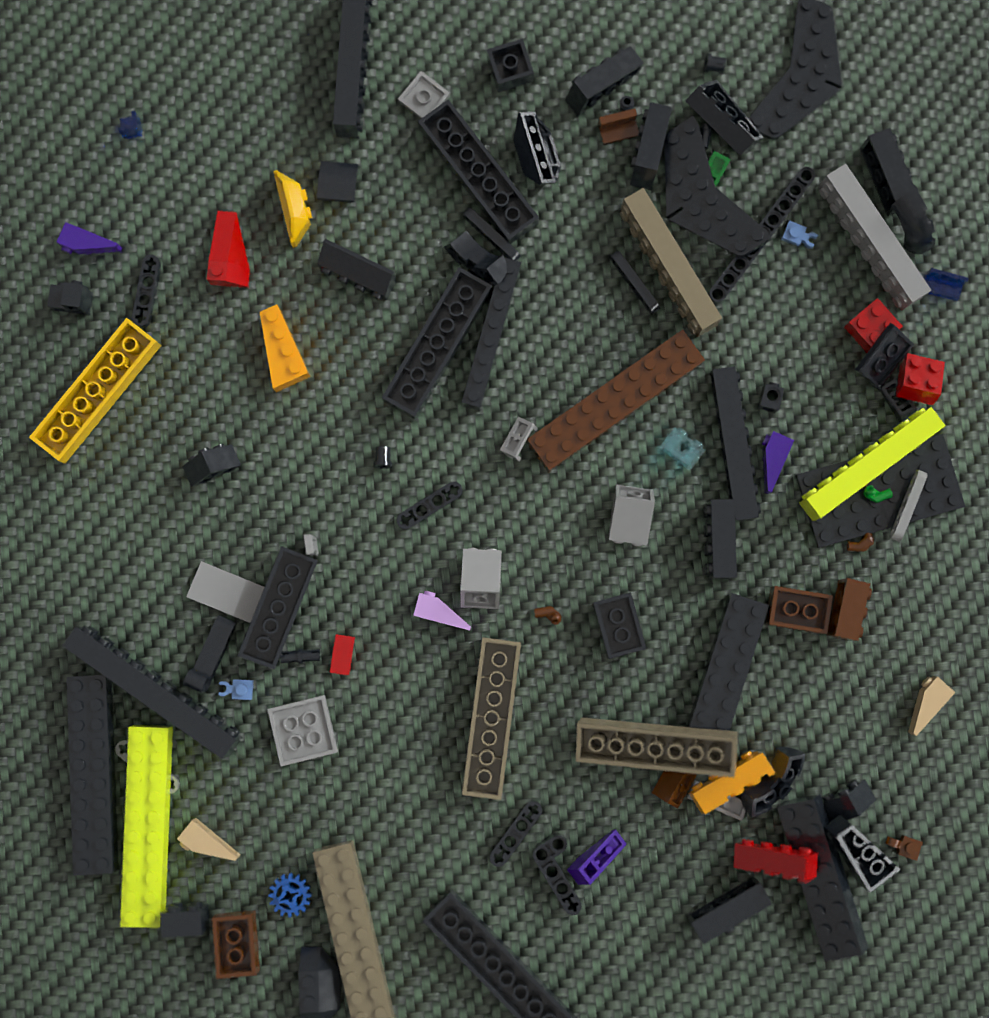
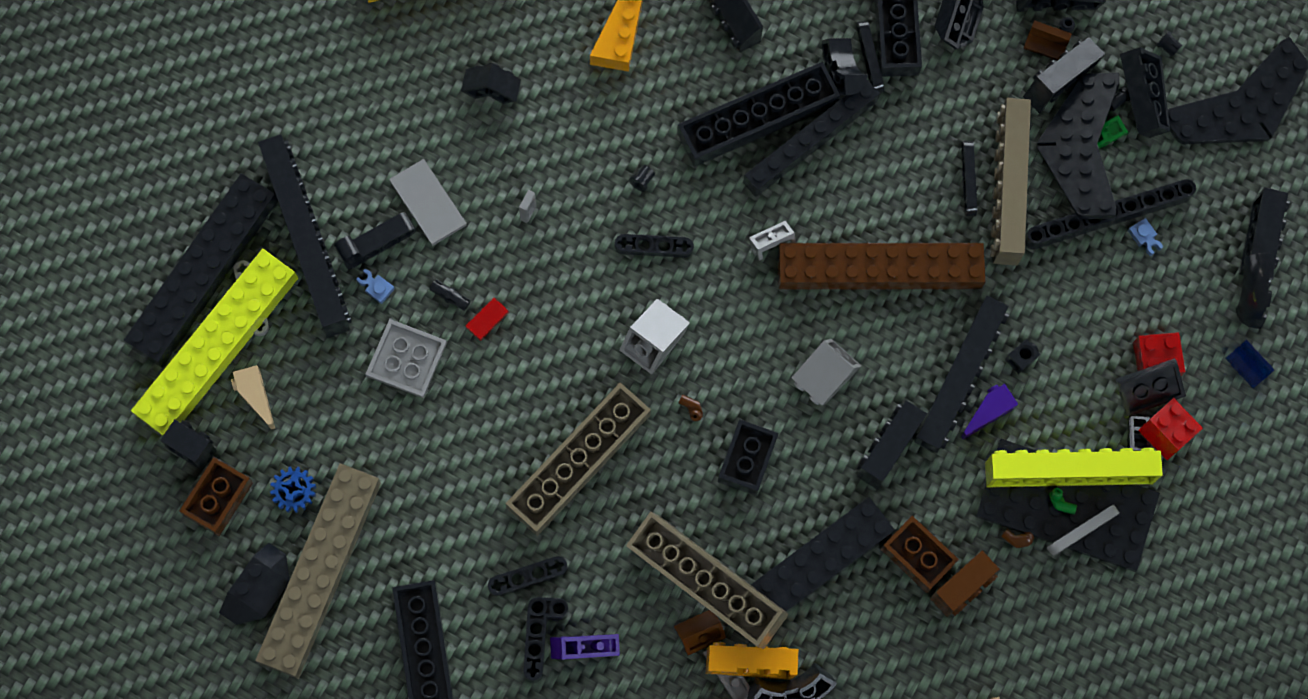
camera: 30 degrees right, 10 degrees down
(277, 607) = (461, 238): black brick -> none
(434, 609) = (594, 334): lavender slope -> none
(686, 457) = (910, 357): clear light blue brick -> none
(873, 237) = (1211, 280): light grey brick -> none

